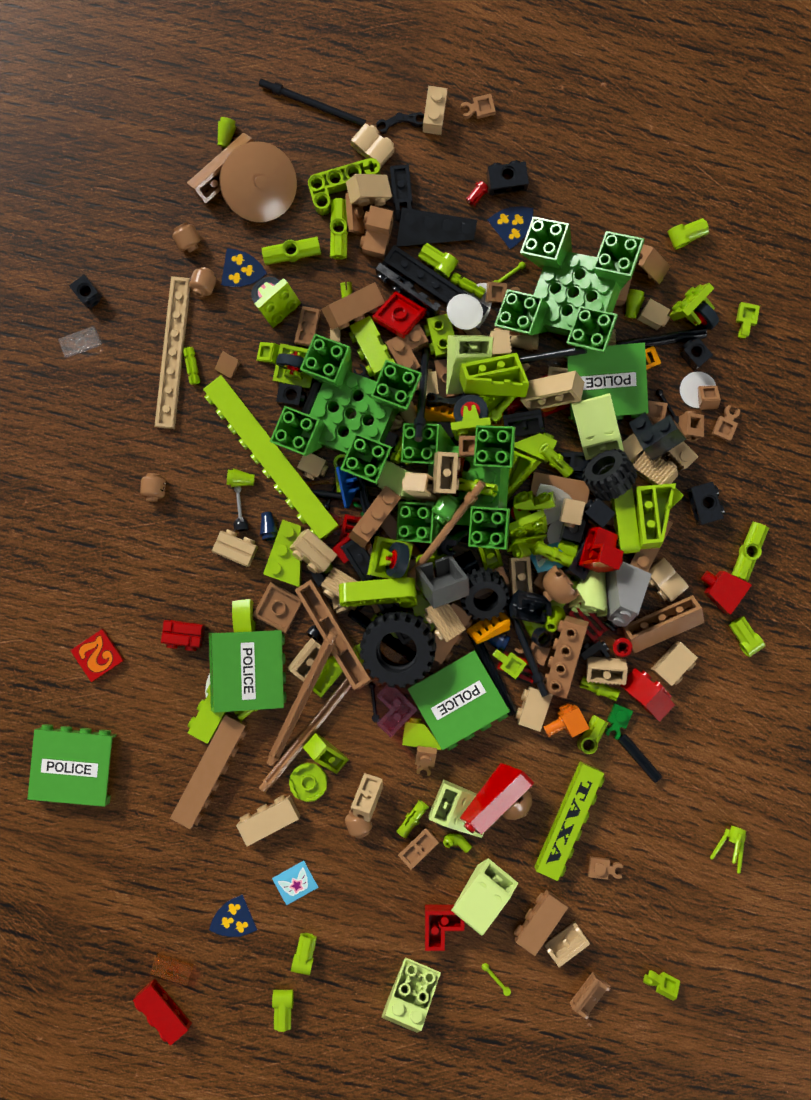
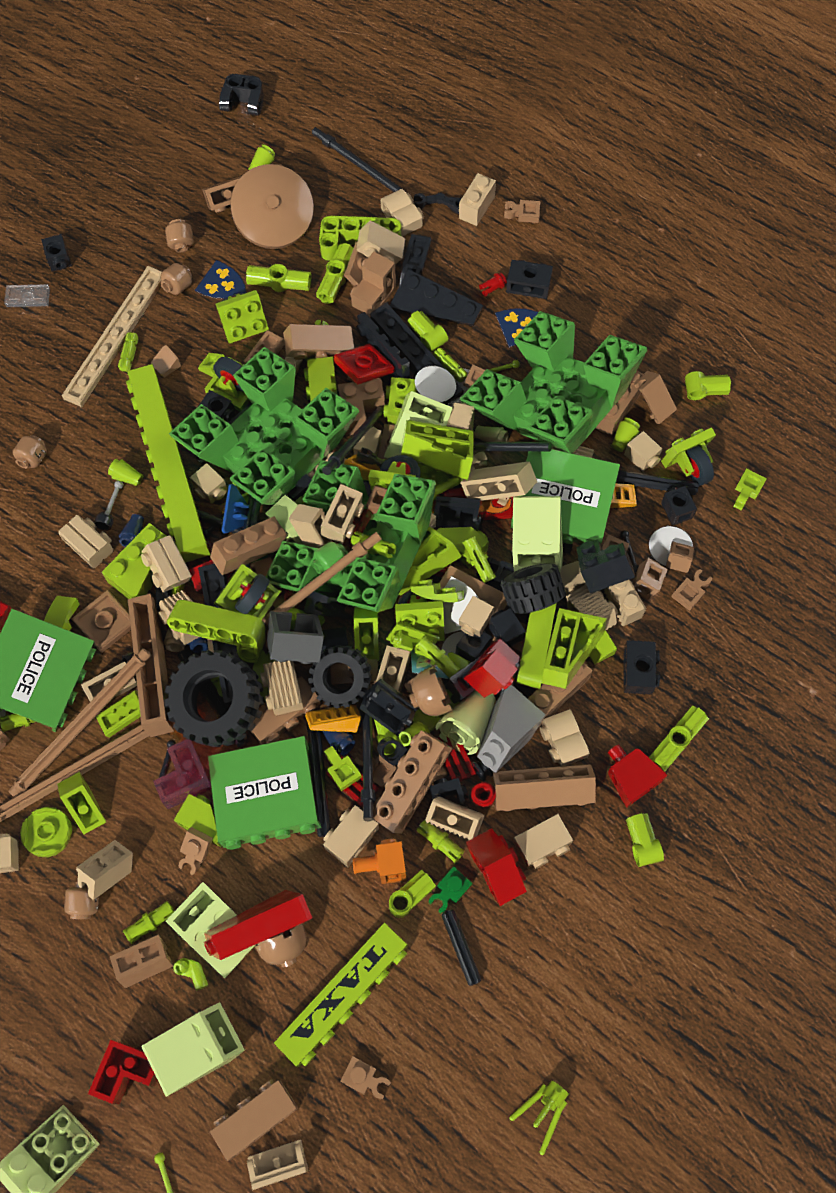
camera: 20 degrees right, 20 degrees down
(178, 63) = (242, 89): none -> black piece

